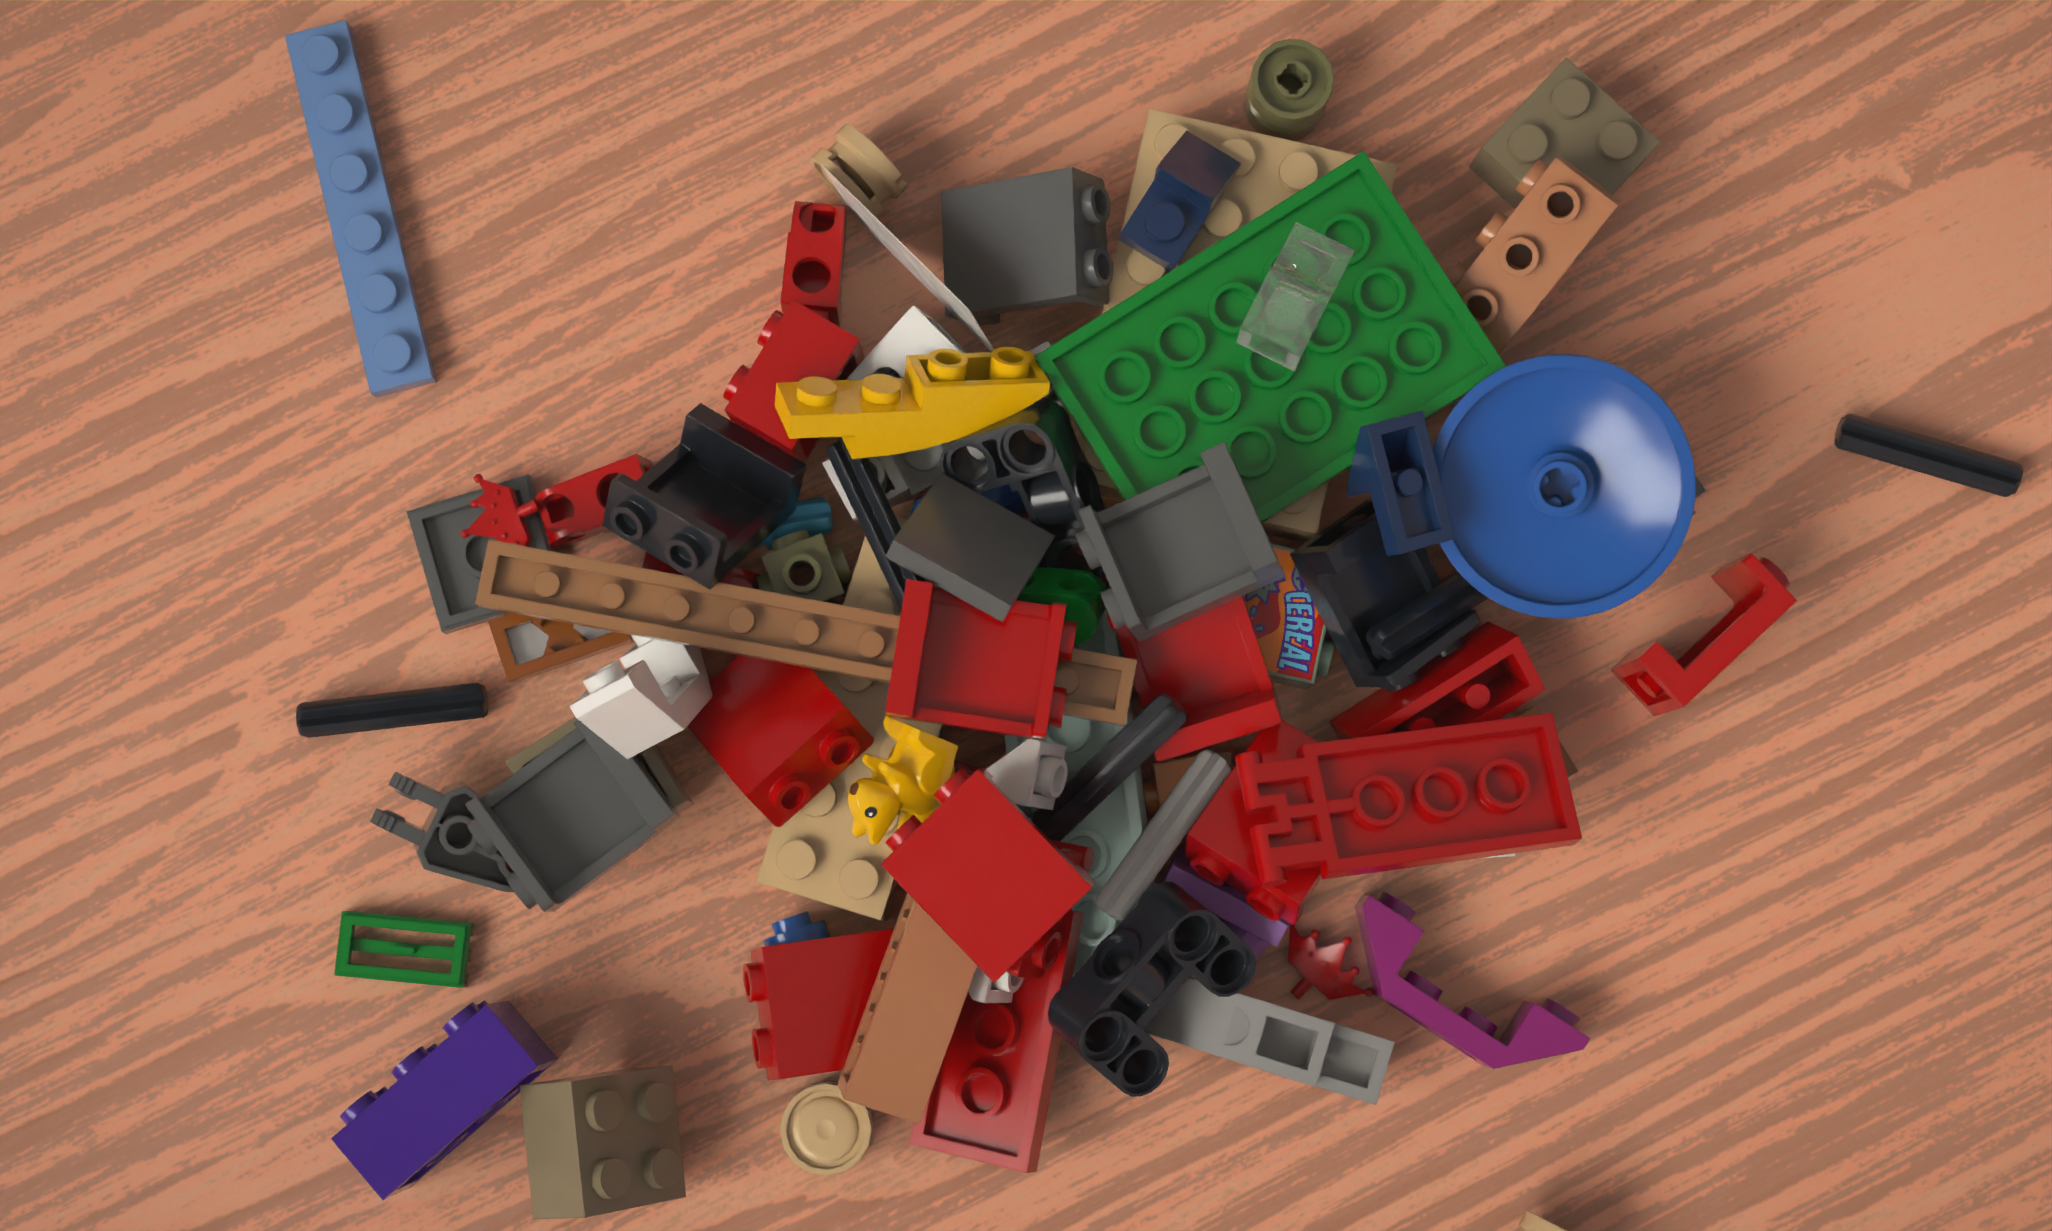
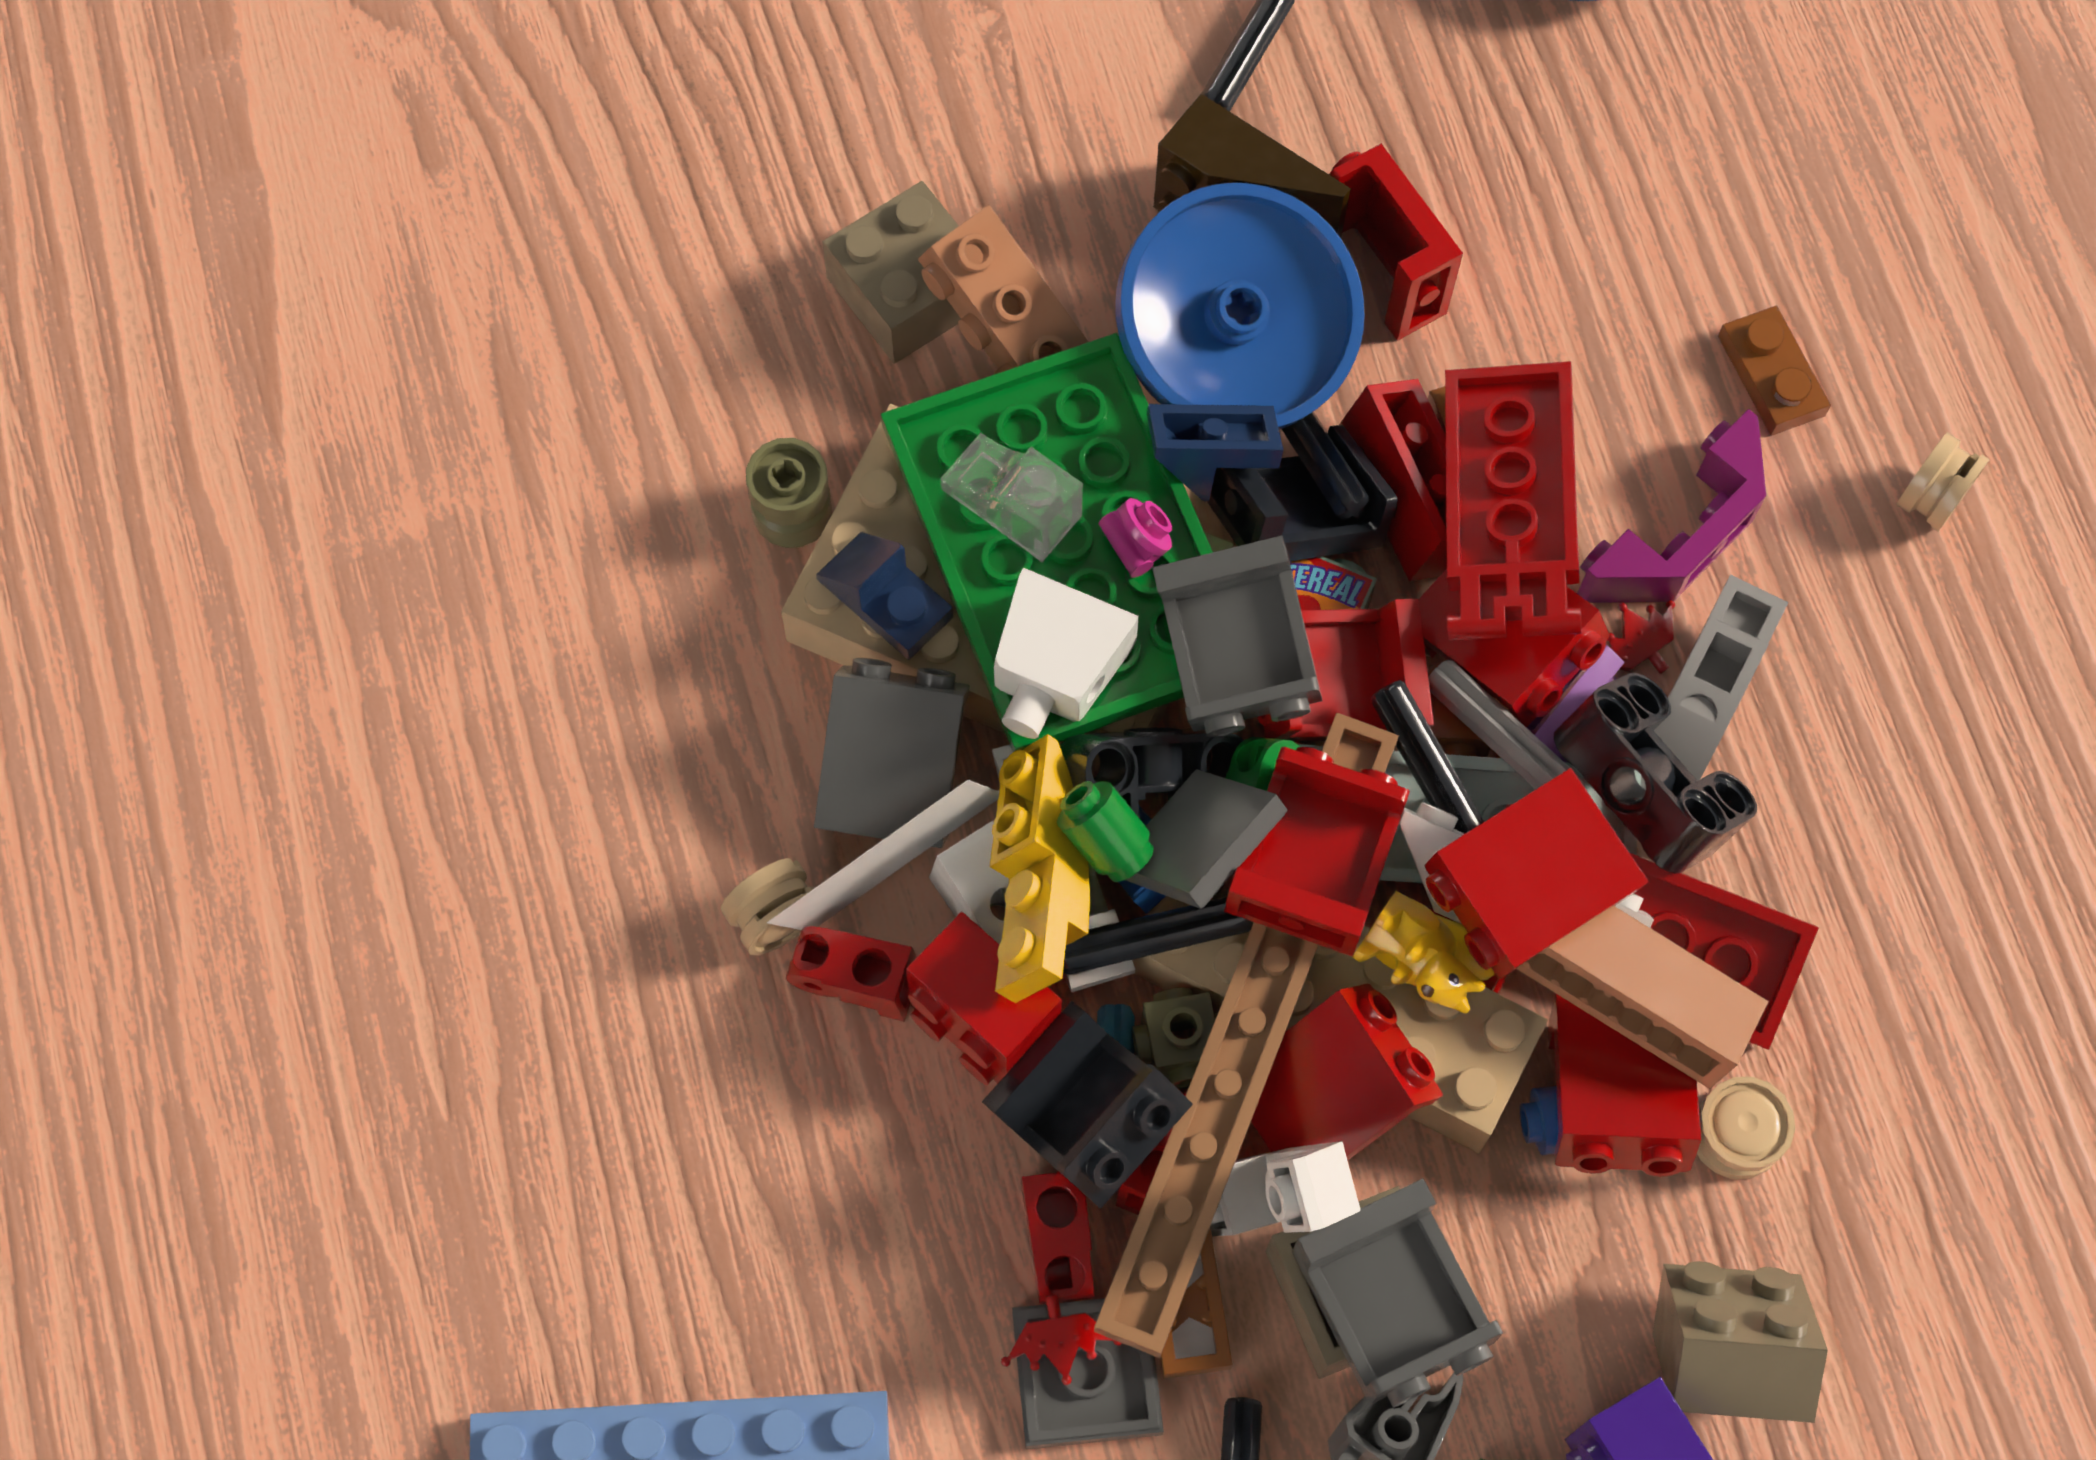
camera: 75 degrees left, 15 degrees down
(956, 454) = (1105, 830): none -> green brick
(1129, 371) = (1058, 652): none -> white torso
(1279, 429) = (1138, 534): none -> dark pink plate
(1660, 1066) = (1774, 370): none -> dark orange piece
(1738, 455) = (1220, 148): none -> dark brown slope

